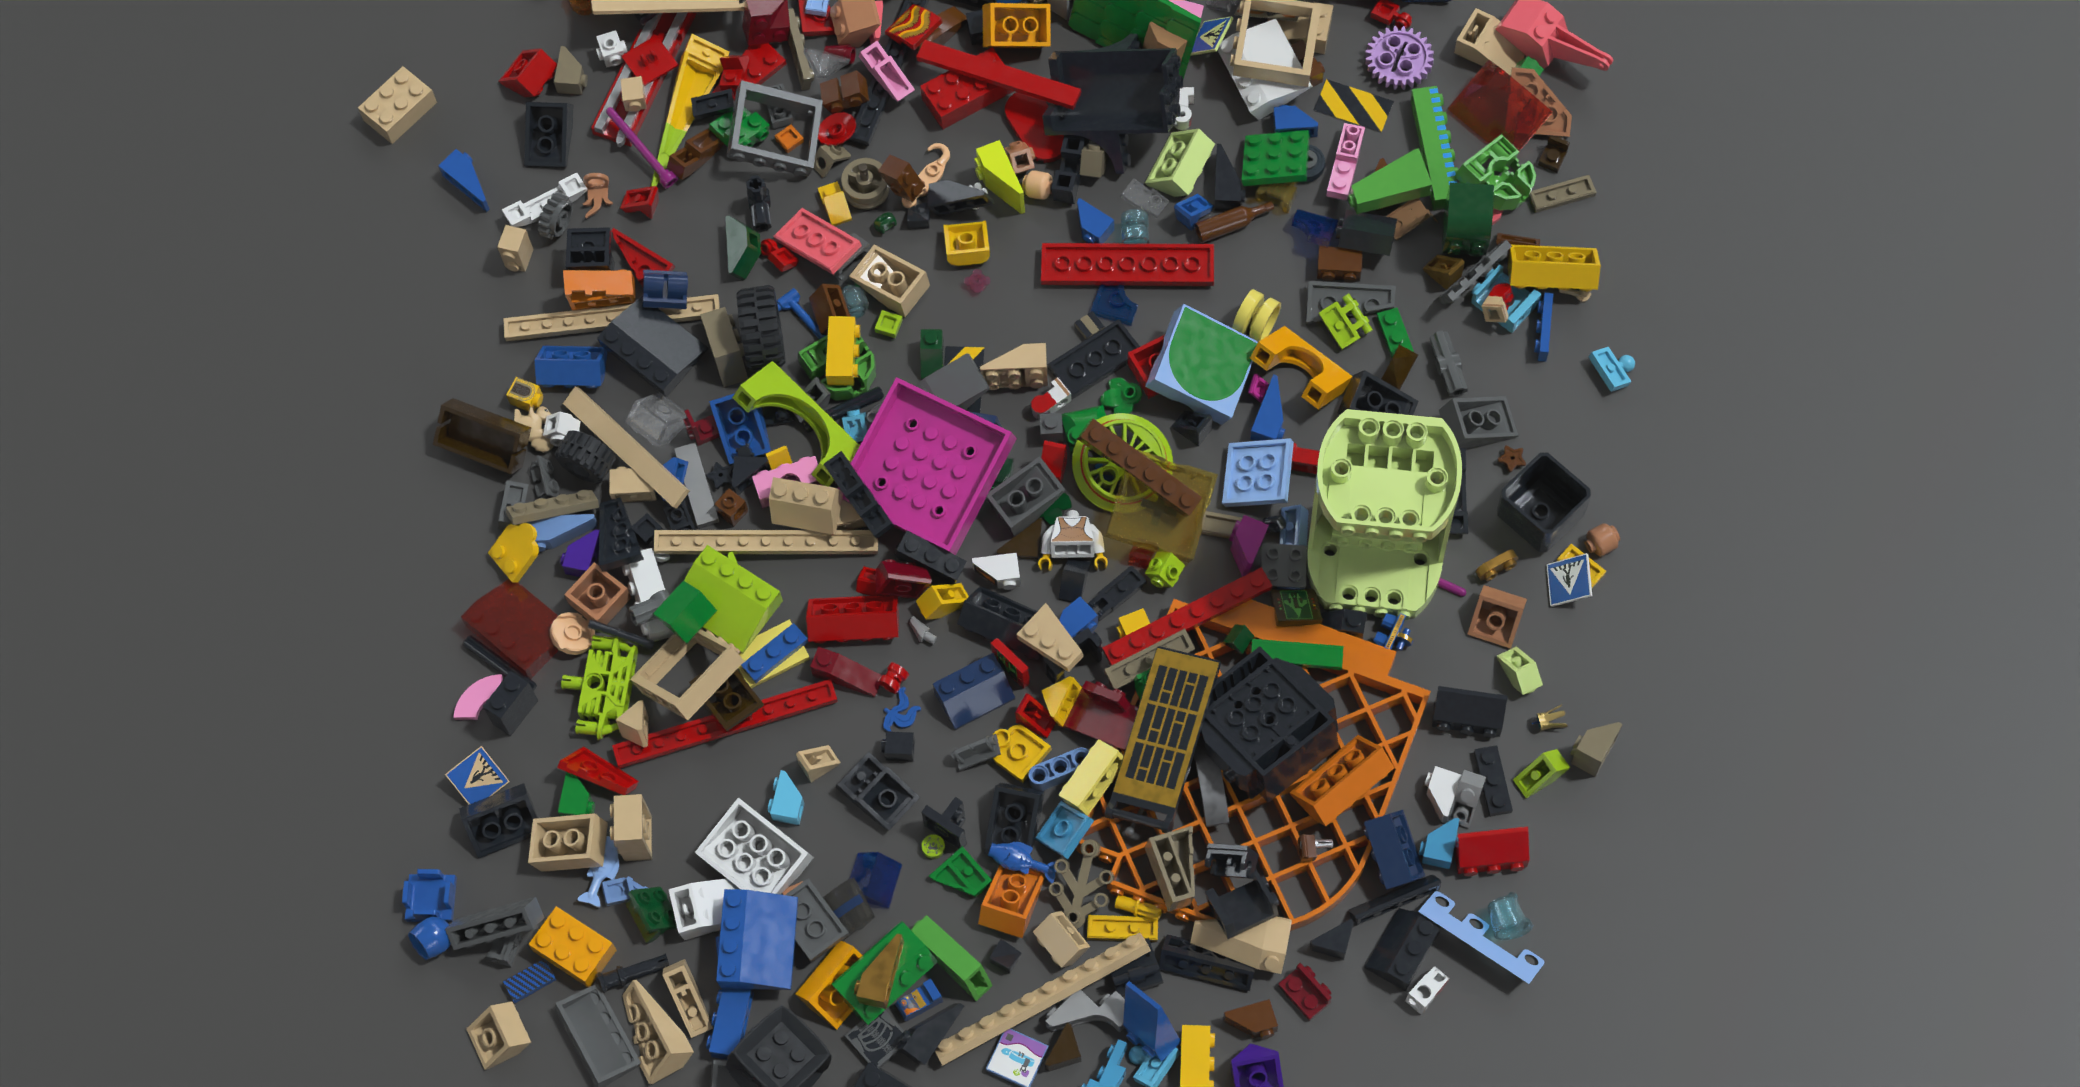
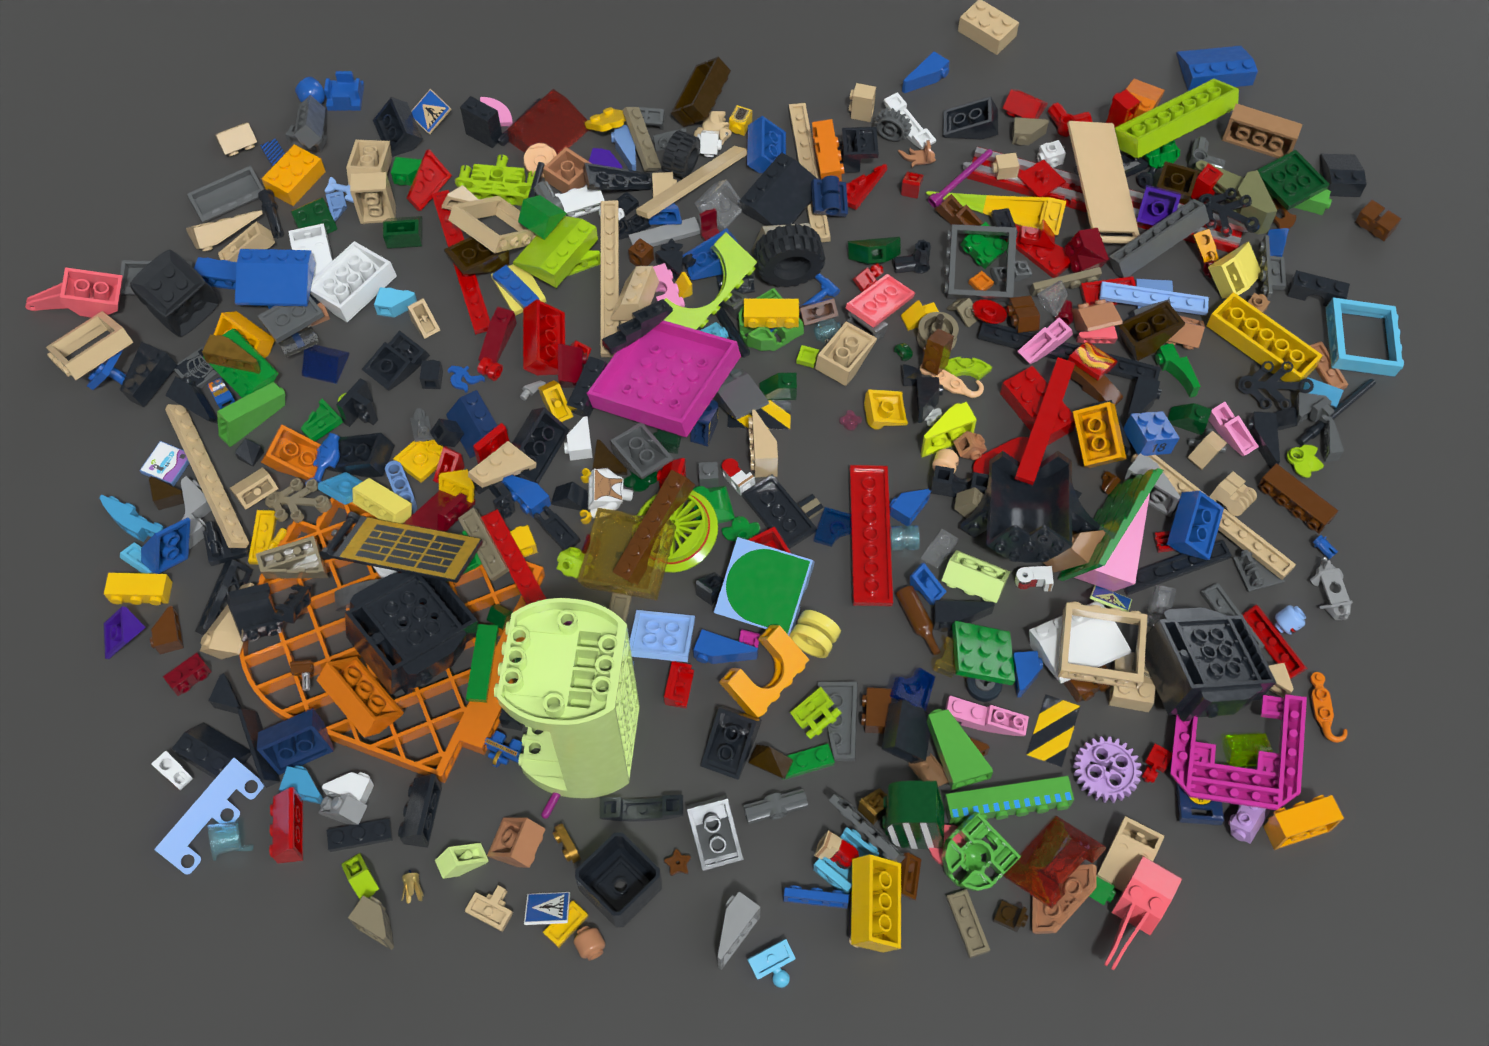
camera: 85 degrees right, 5 degrees down
(560, 32) = (1061, 118): none -> red piece
(674, 796) = (403, 232): none -> dark green slope
(910, 150) = (969, 367): none -> lime tile
(989, 717) = (446, 432): none -> black brick
(1065, 27) = (1110, 482): none -> reddish brown tile
(1570, 638) = (490, 909): none -> tan hinge
(1584, 397) = (738, 921): none -> light grey slope

